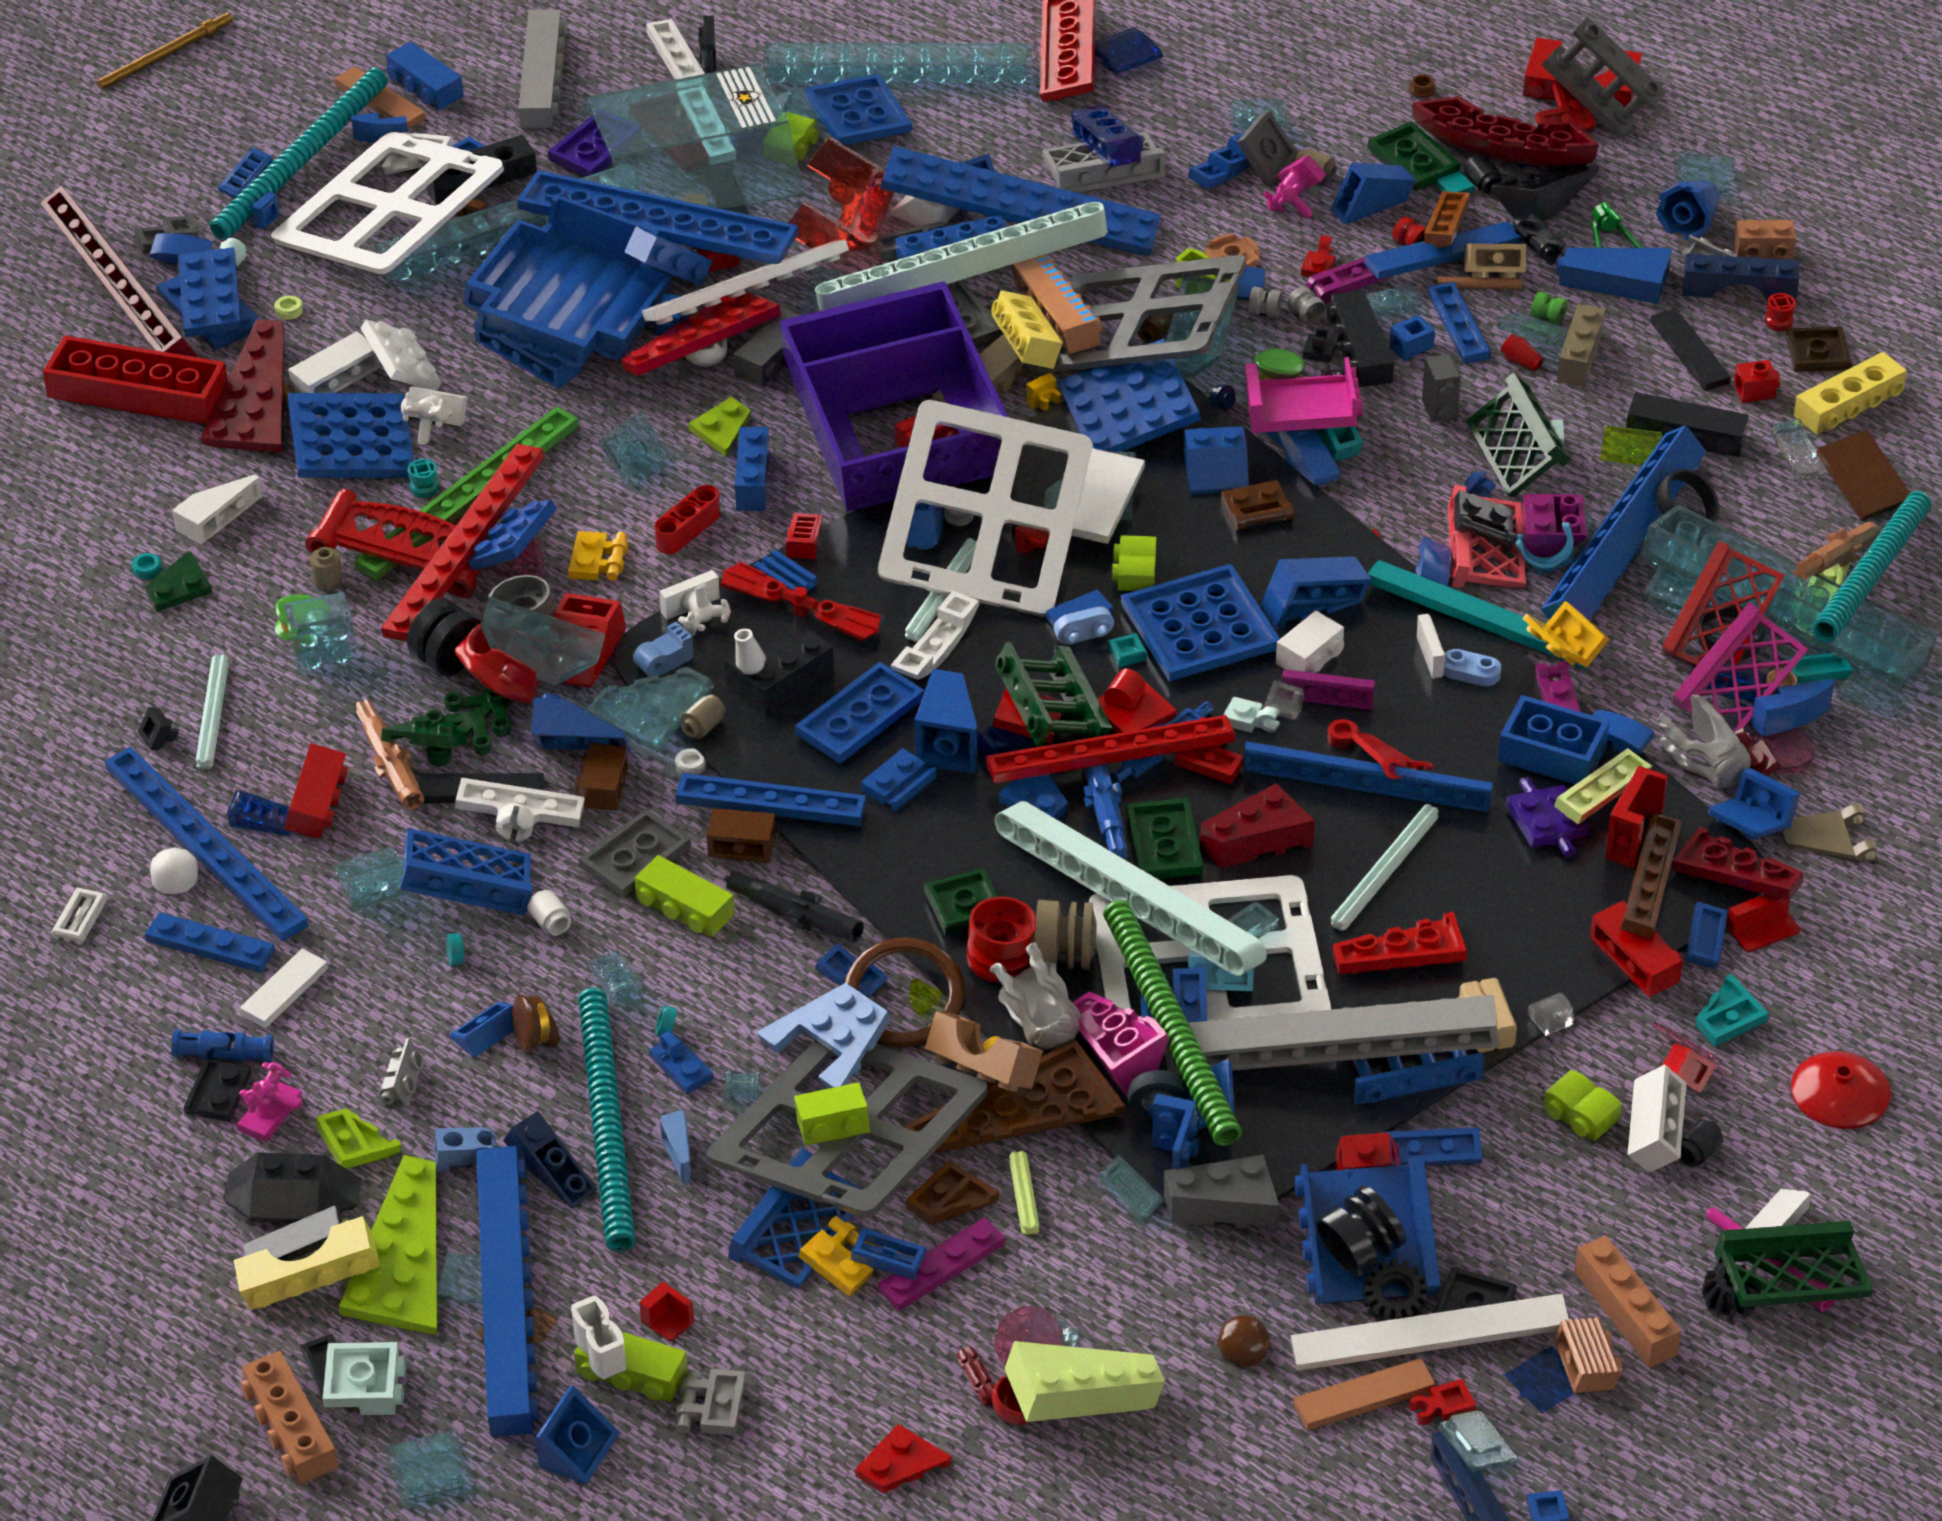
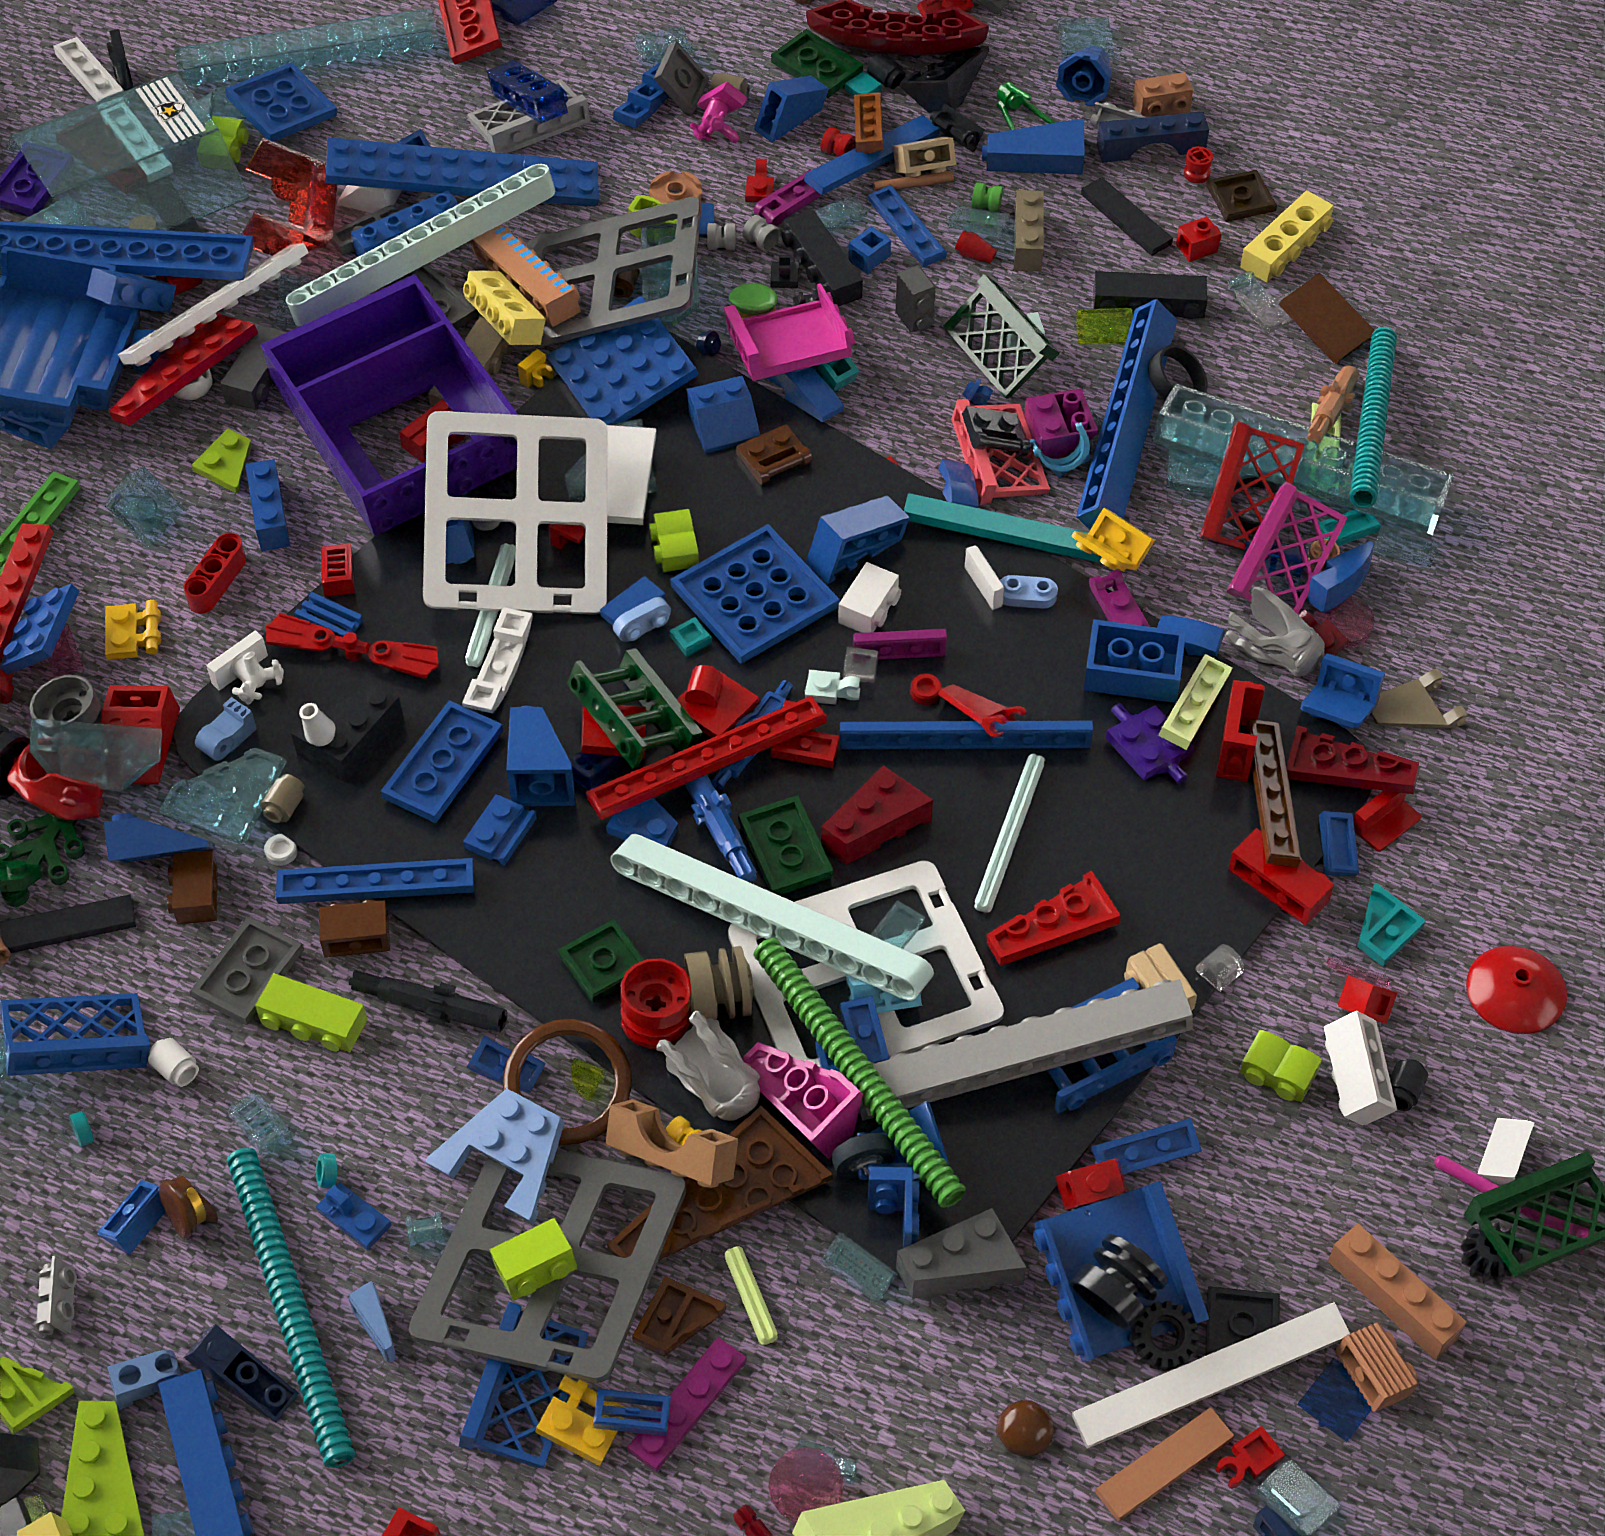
camera: 15 degrees left, 10 degrees up
(519, 806) = (113, 941): white plate -> none

